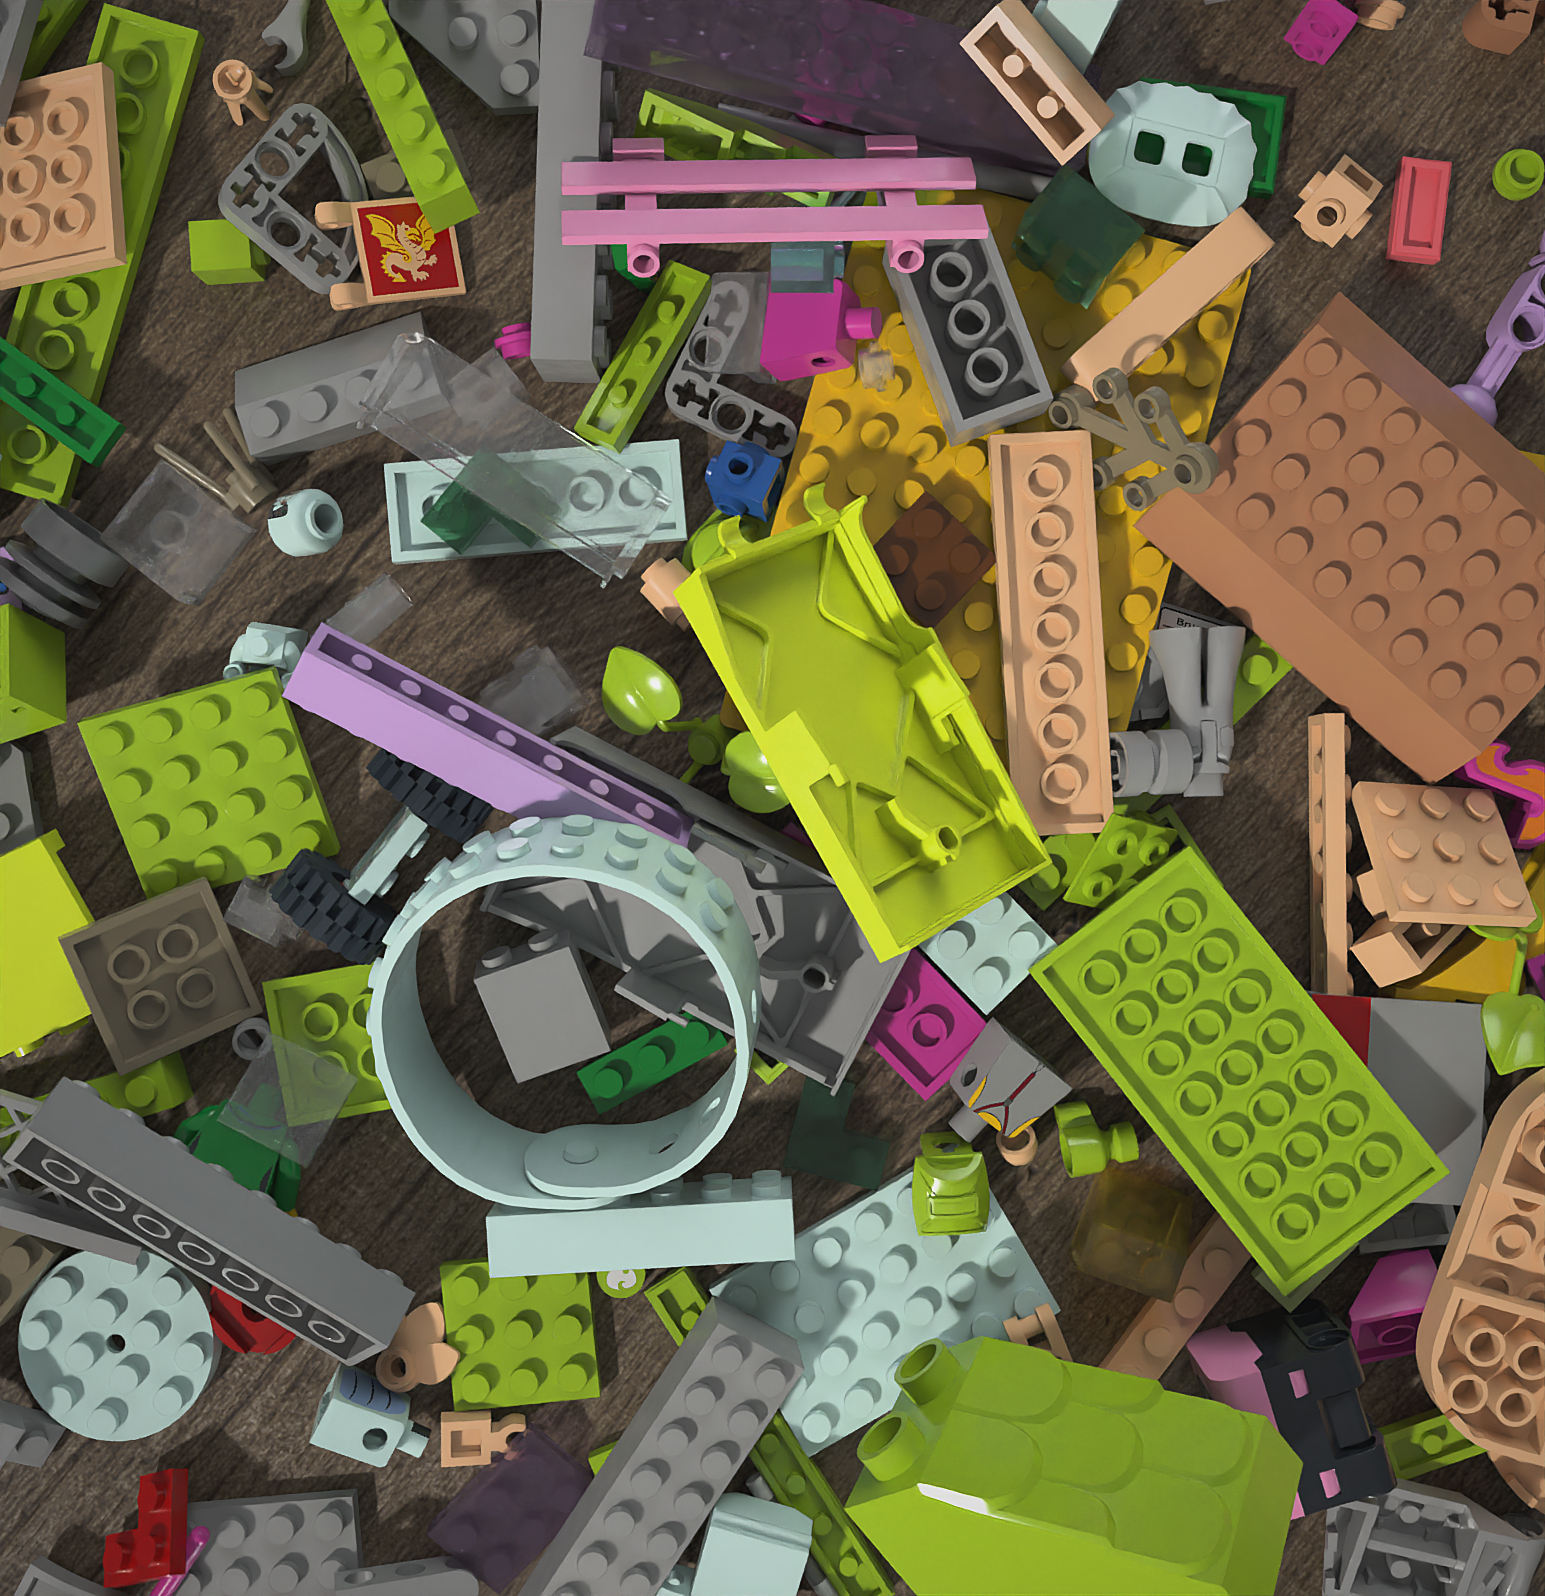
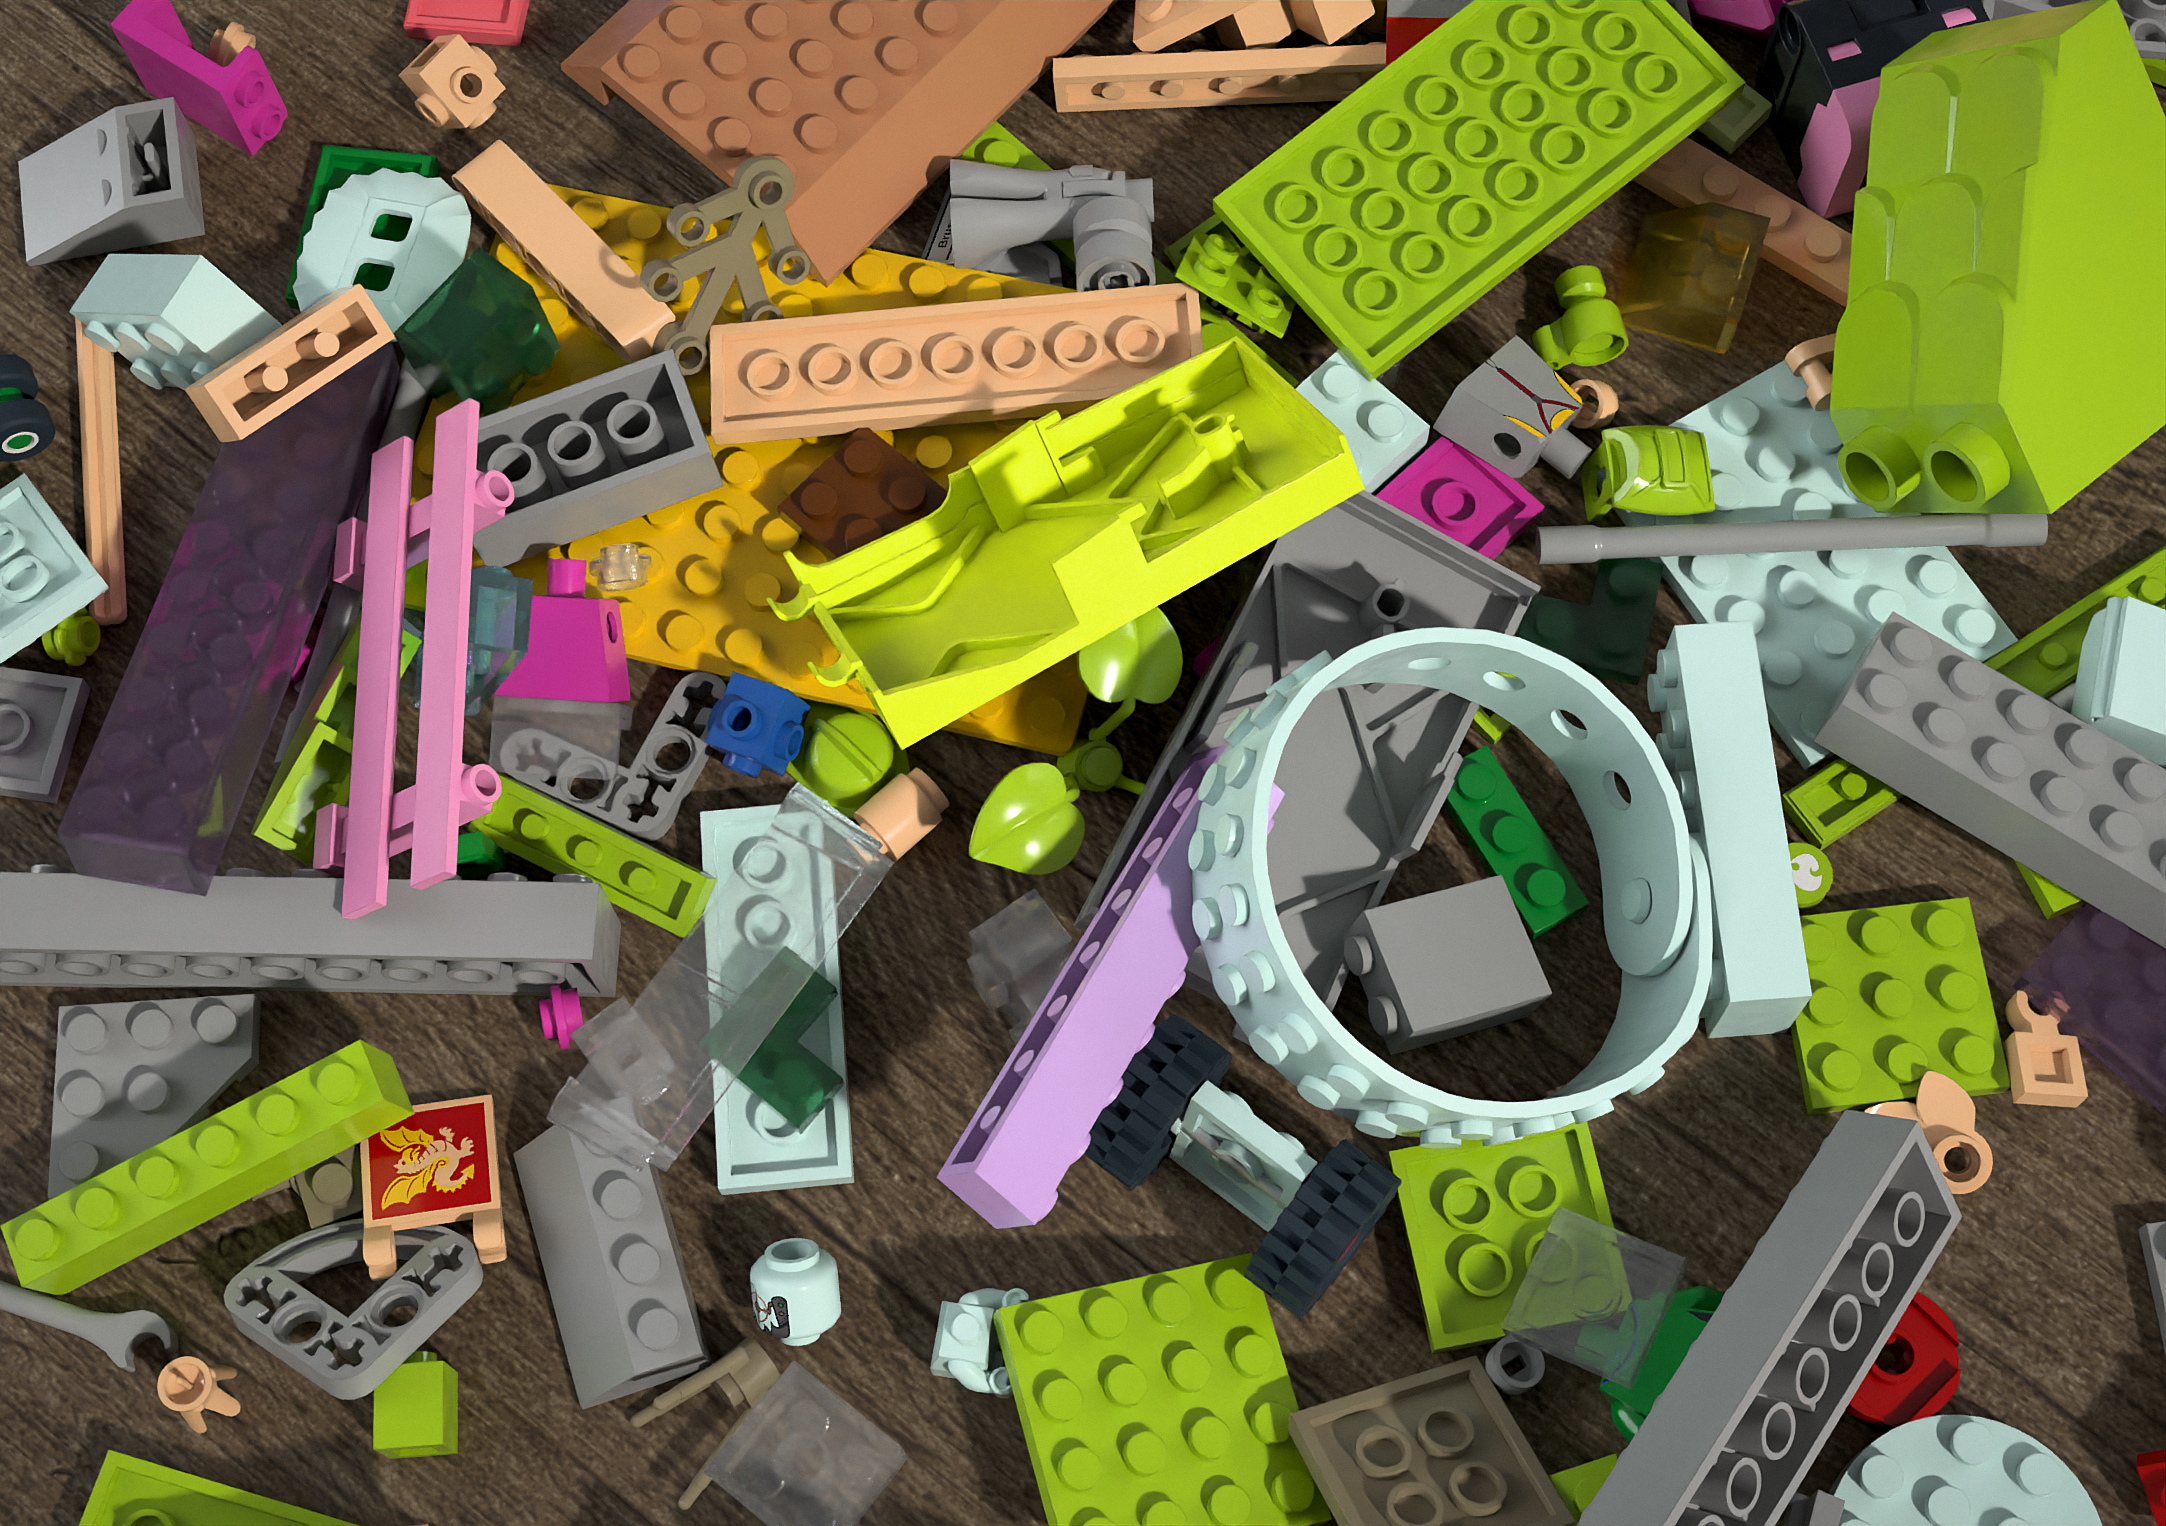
camera: 90 degrees left, 20 degrees down
(259, 915) = (1335, 1344): clear brick -> none
(366, 1419) = (2029, 1196): light aqua torso -> none
(371, 610) = (930, 1220): clear axle -> none
(887, 1139) = (1594, 543): none -> light grey piece

